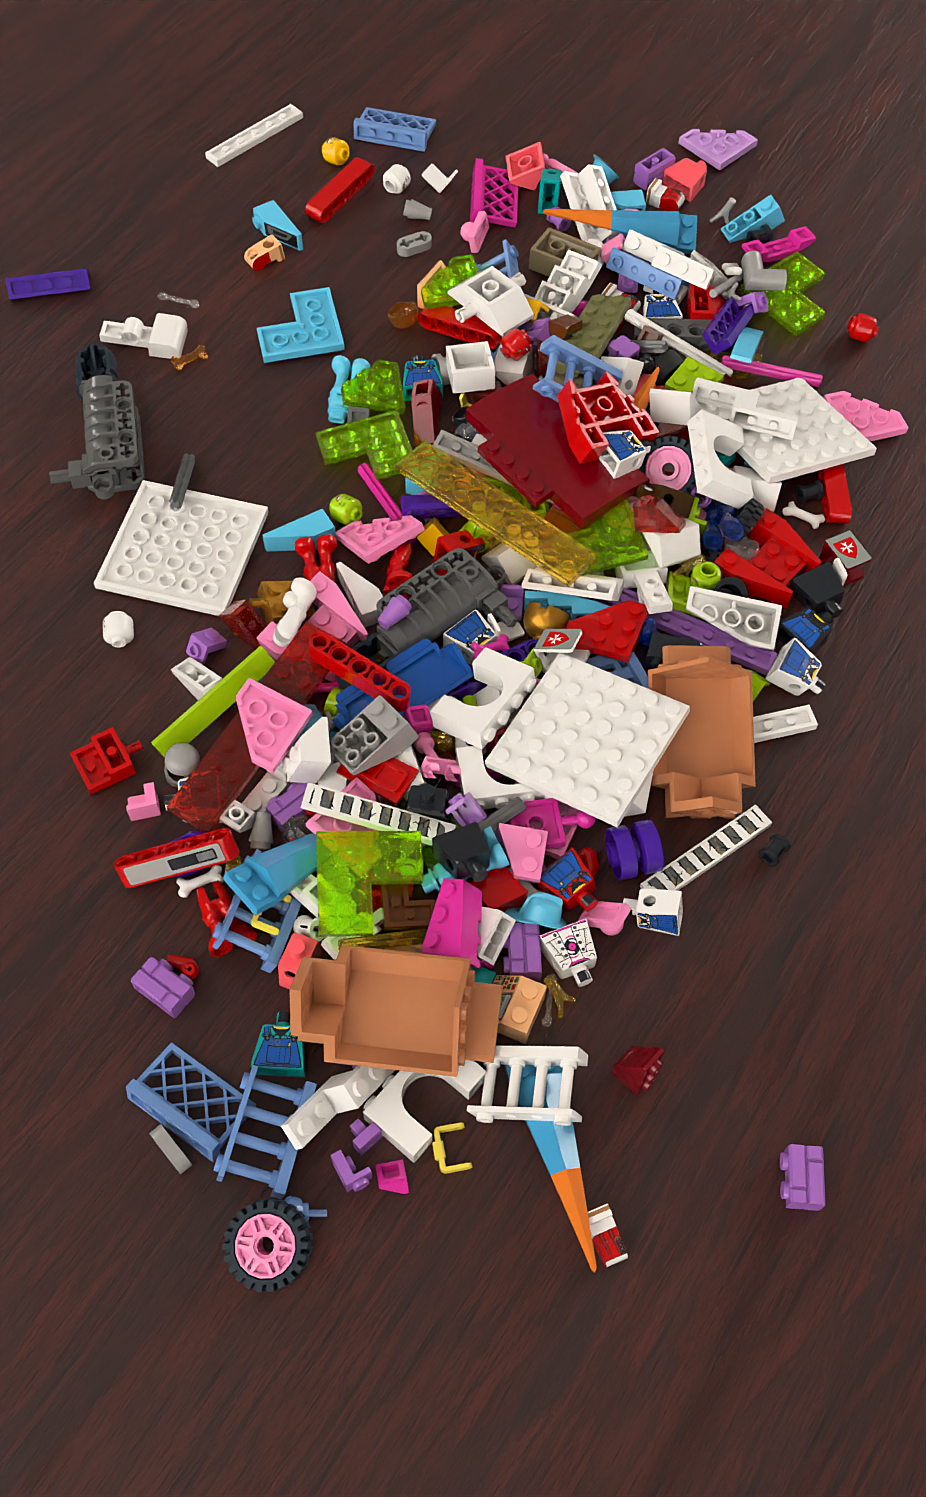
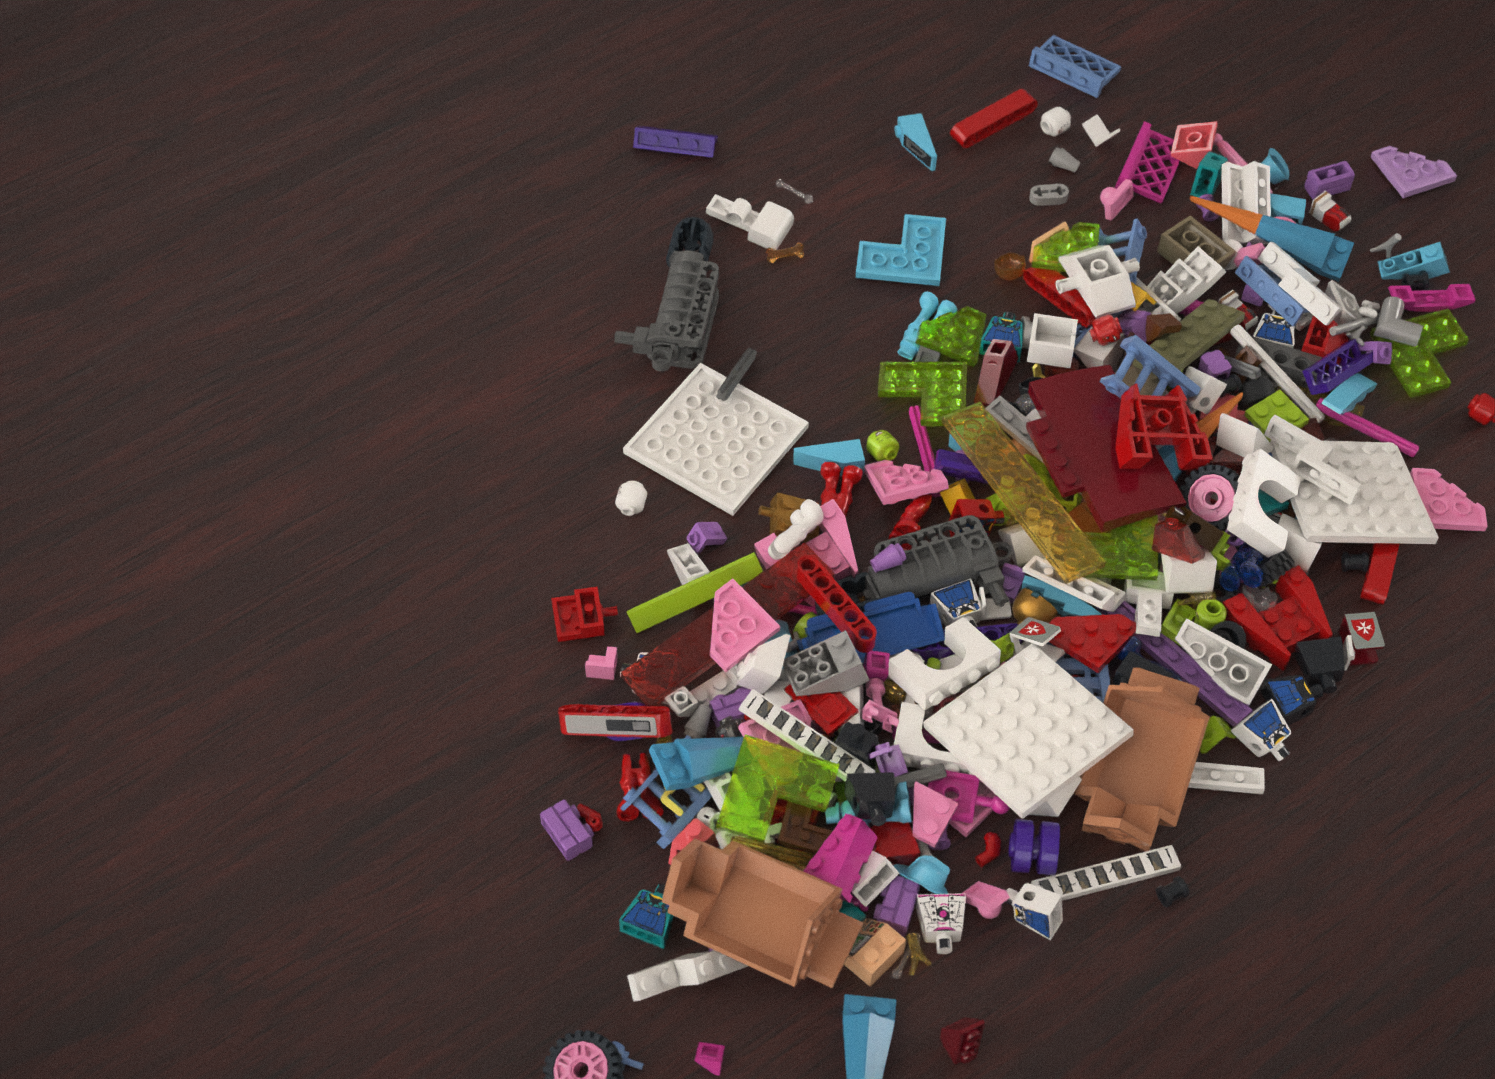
camera: 20 degrees right, 5 degrees down
(170, 1149) = (527, 967): light grey beam -> none
(172, 1116) = (537, 939): medium blue fence -> none
(180, 760) = (647, 636): light grey helmet -> none
(187, 886) = (616, 749): white piece -> none
(243, 622) = (748, 525): clear red slope -> none
(254, 135) = (928, 36): white tile -> none
(264, 252) = (894, 165): light nougat leg -> none
(285, 1151) = (624, 1002): medium blue fence -> none
(335, 151) = (1004, 76): yellow head -> none
(345, 1167) = (673, 1043): medium lavender bracket -> none
(361, 594) = (867, 531): white slope -> none
(365, 1136) = (698, 1014): medium lavender tile -> none
(396, 1123) = (725, 1006): white arch -> none
(439, 1151) = (759, 1050): light yellow piece -> none
(500, 644) = (982, 619): dark pink piece -> none
(542, 1058) = (856, 991): white fence -> none
(570, 881) = (963, 856): torso -> none
(623, 453) = (1168, 469): torso -> none
(686, 177) = (1361, 198): coral torso -> none
(813, 519) = (1331, 576): white piece -> none

